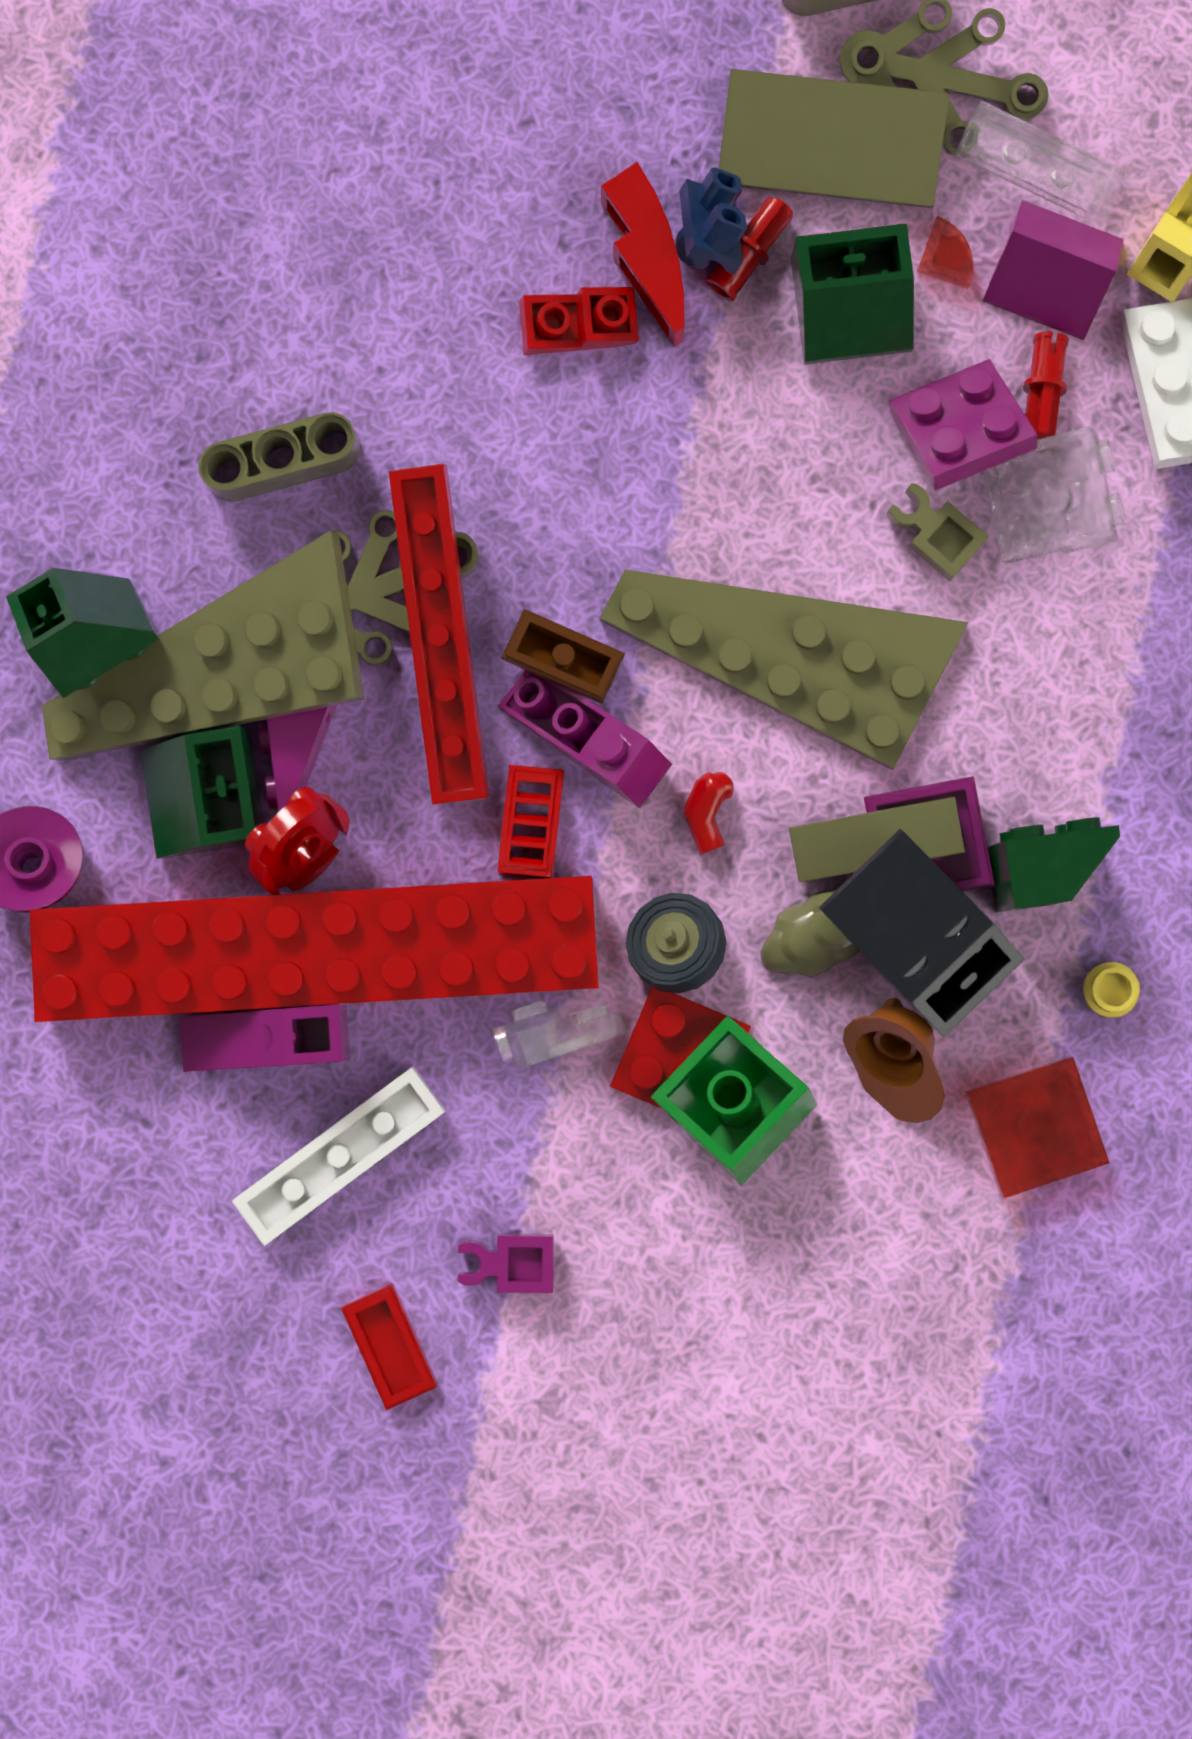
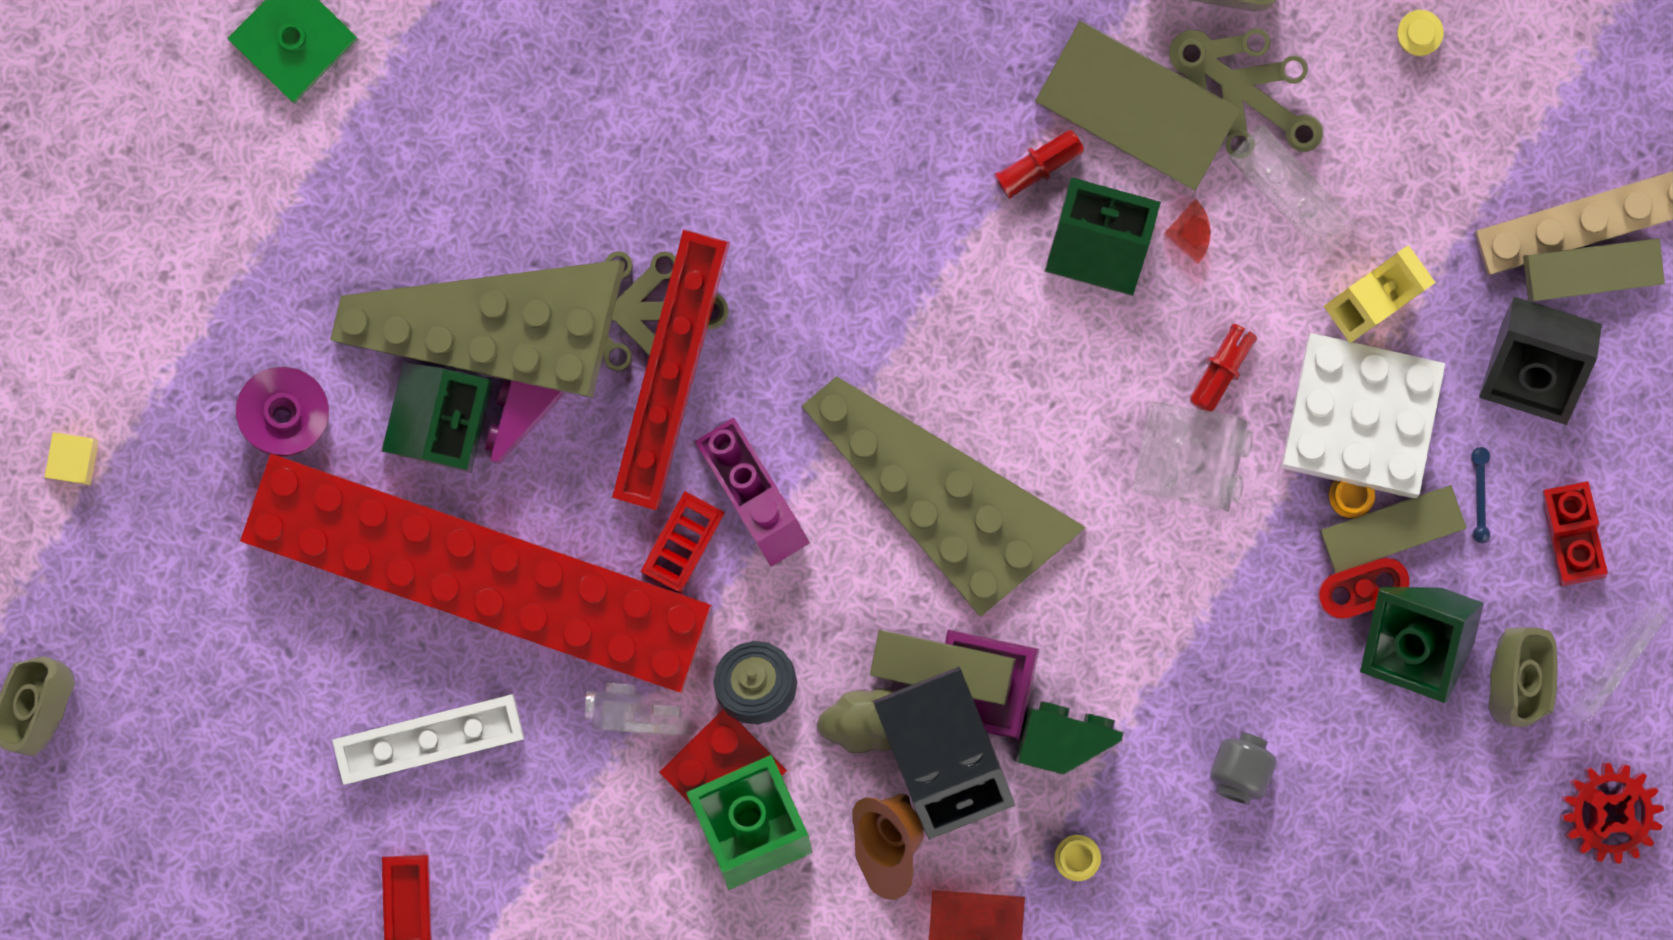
camera: 15 degrees right, 0 degrees up
(80, 625) = (399, 249): dark green slope -> none
(254, 450) = (586, 165): olive beam -> none
(265, 1038) = (408, 625): magenta slope -> none
(296, 841) = (495, 485): red plate -> none
(521, 1263) = (533, 878): magenta plate -> none
(563, 656) = (760, 425): reddish brown slope -> none
(579, 321) = (882, 165): red slope -> none
(647, 248) = (957, 134): red slope -> none
(703, 806) = (820, 585): red arm -> none
(711, 221) = (1015, 134): dark blue hips -> none
(944, 537) = (1095, 453): olive plate -> none
(963, 424) = (1144, 372): magenta plate -> none
(1054, 270) = (1270, 277): magenta slope -> none

